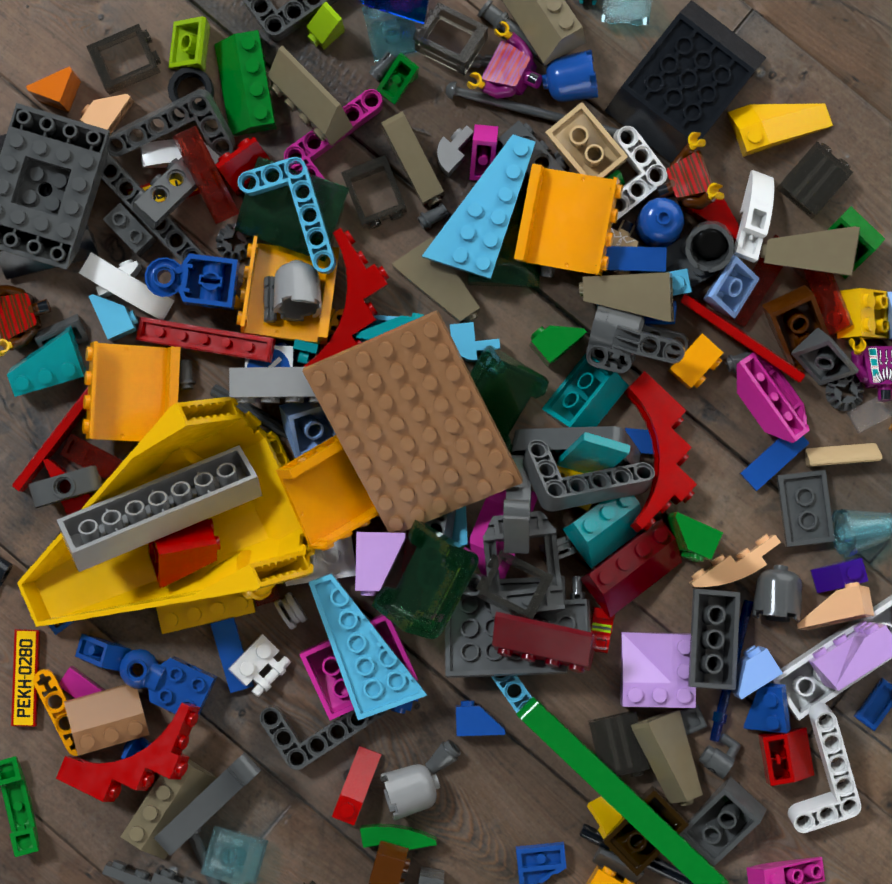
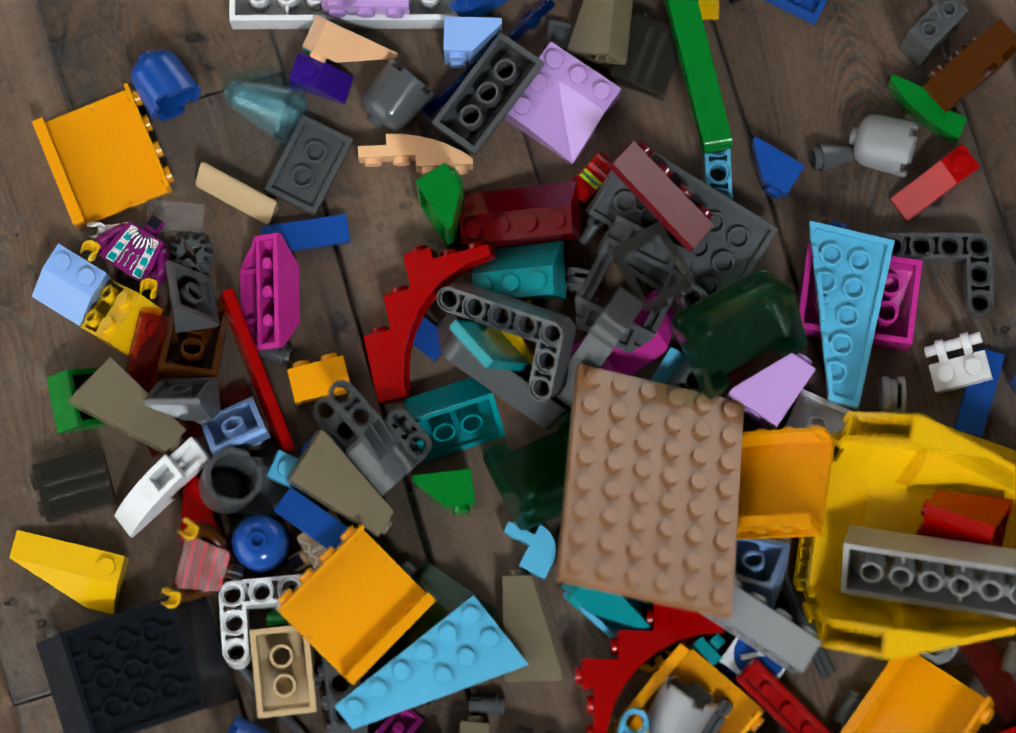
camera: 155 degrees left, 5 degrees down
(780, 284) = (186, 398): none -> dark grey slope

